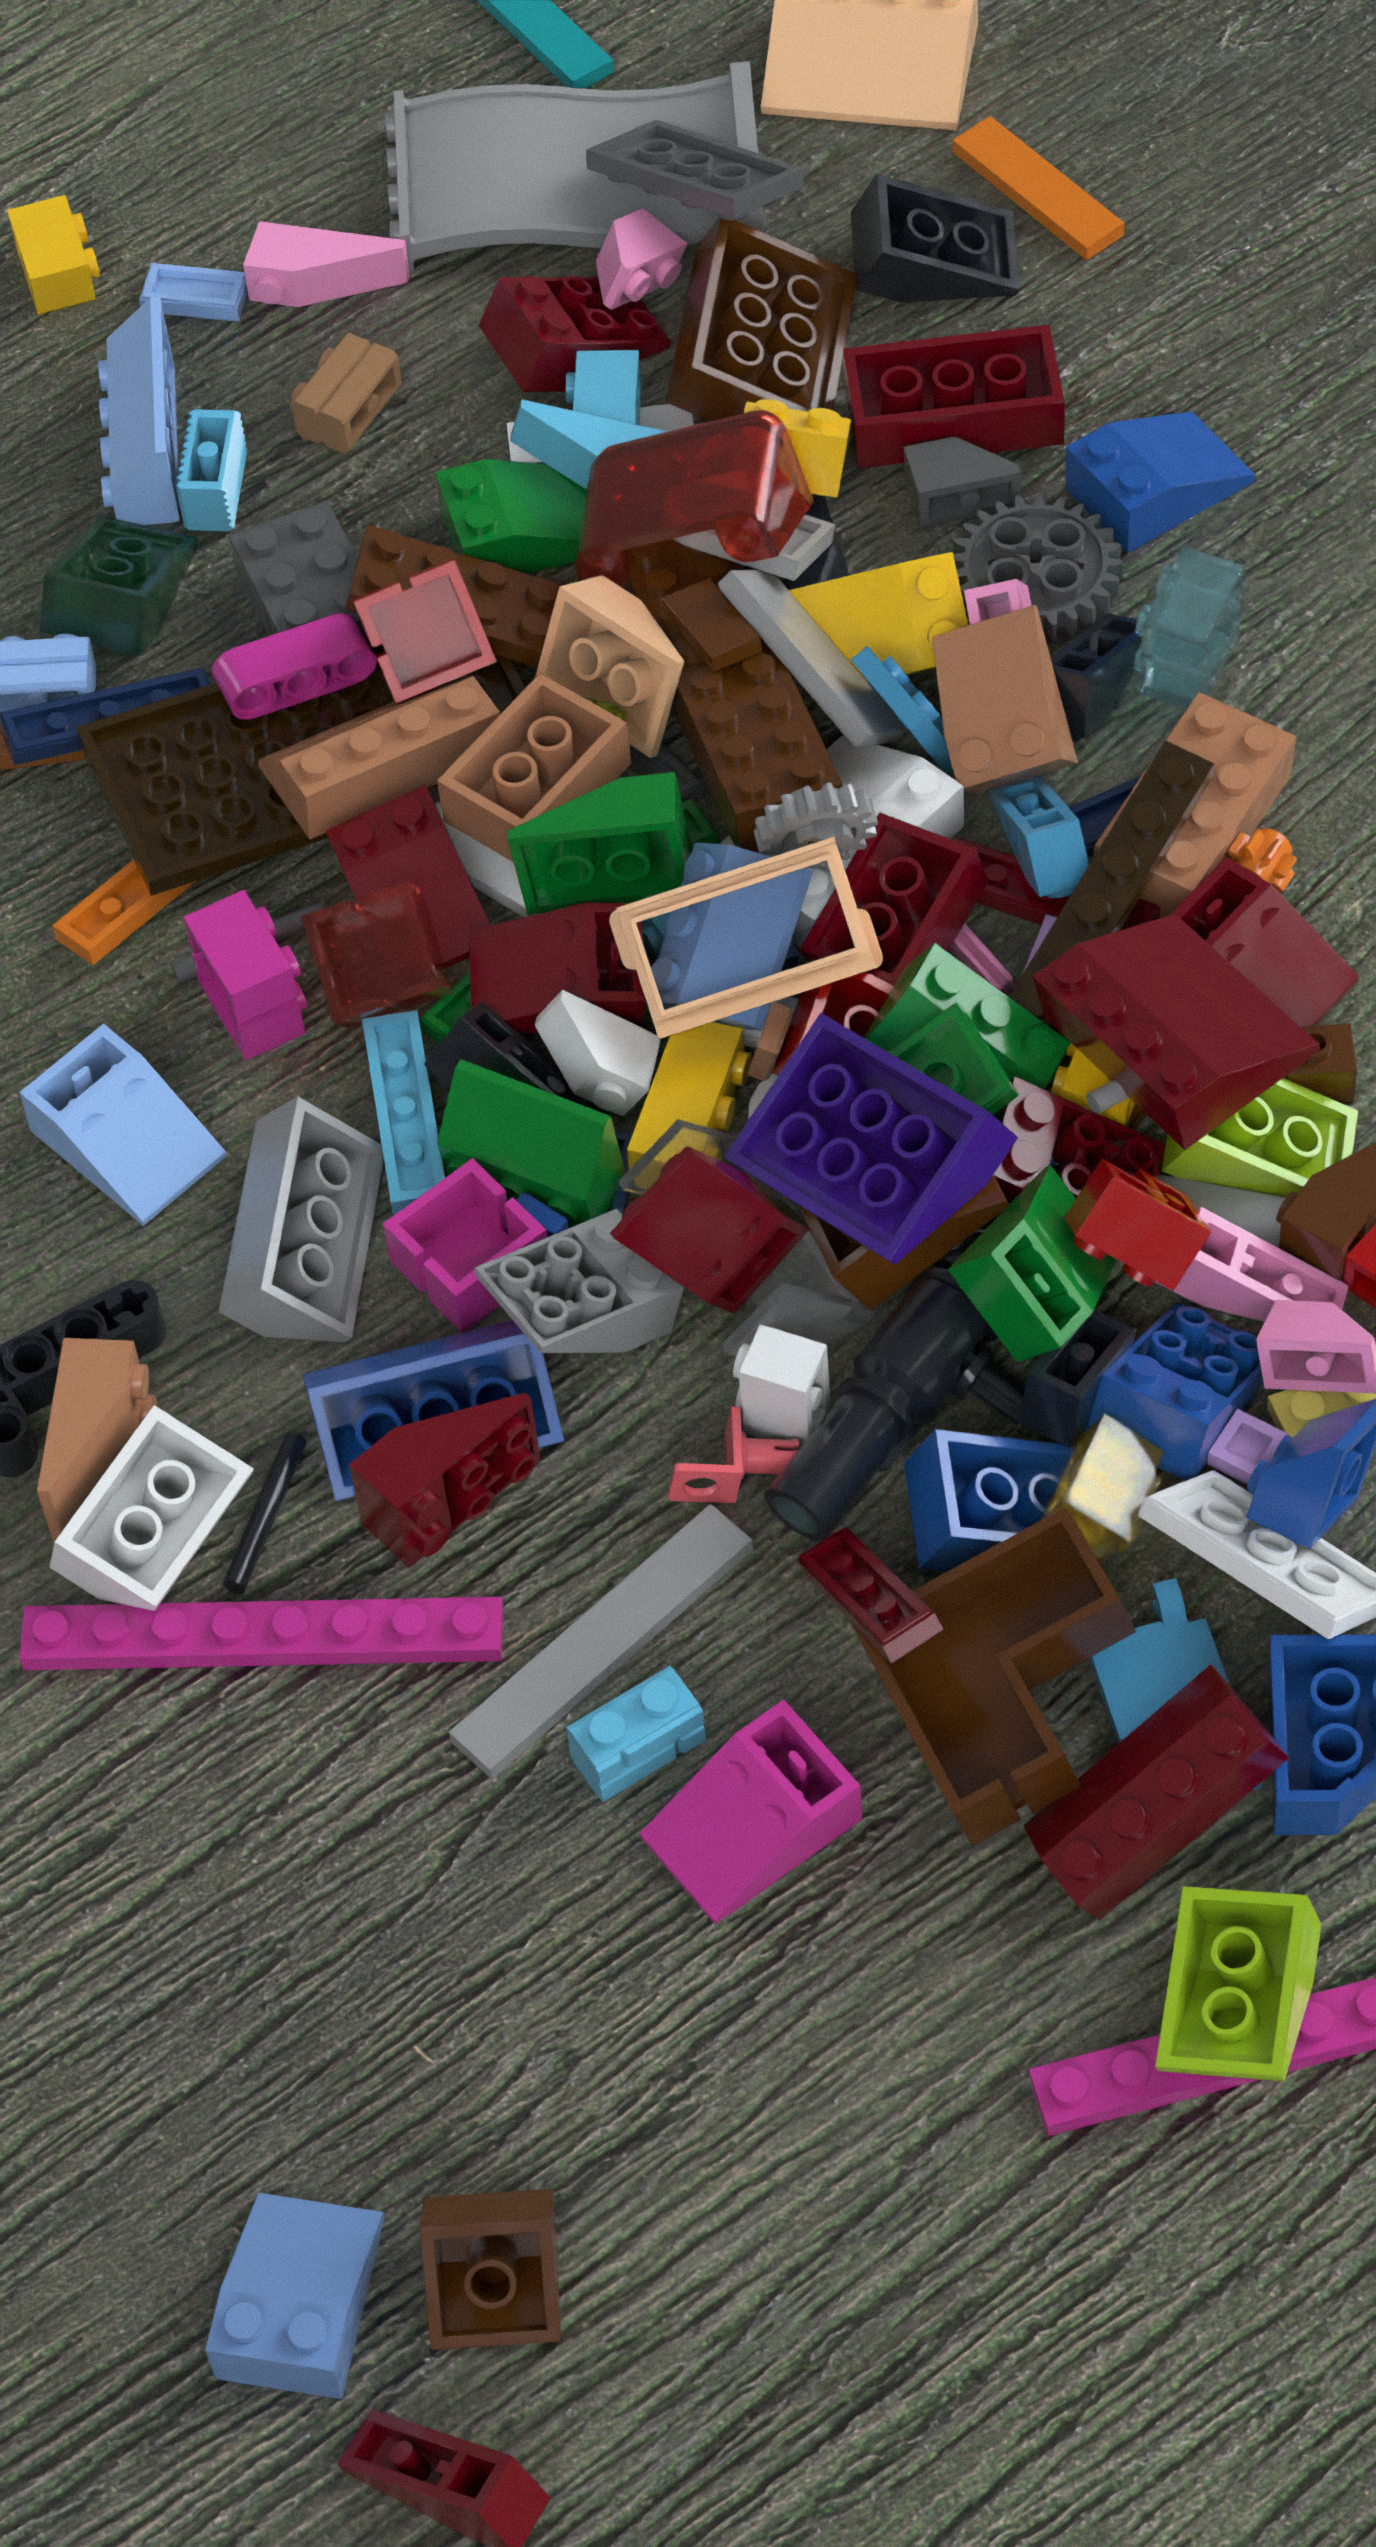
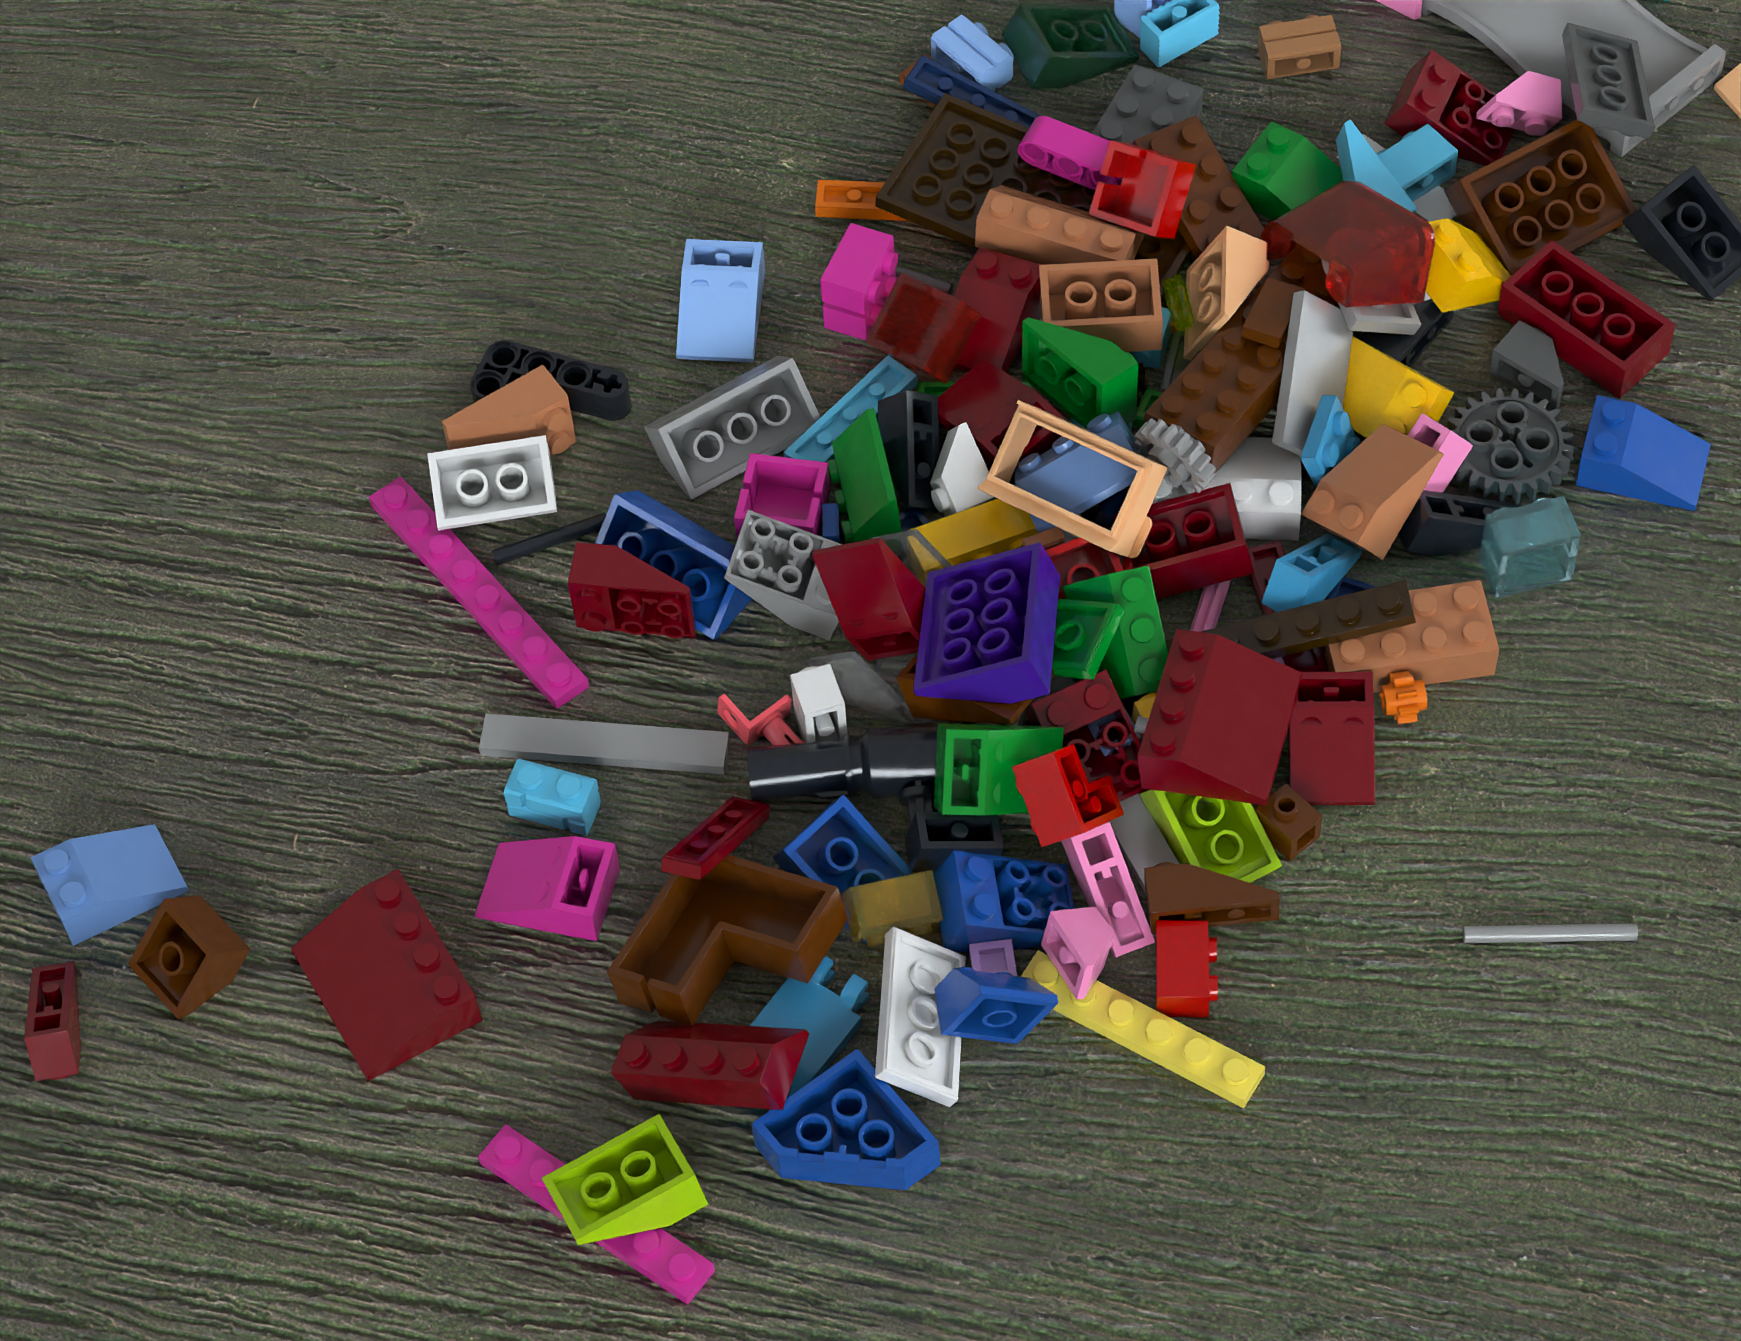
camera: 50 degrees right, 0 degrees up
(716, 2067) = (386, 976): none -> dark red slope

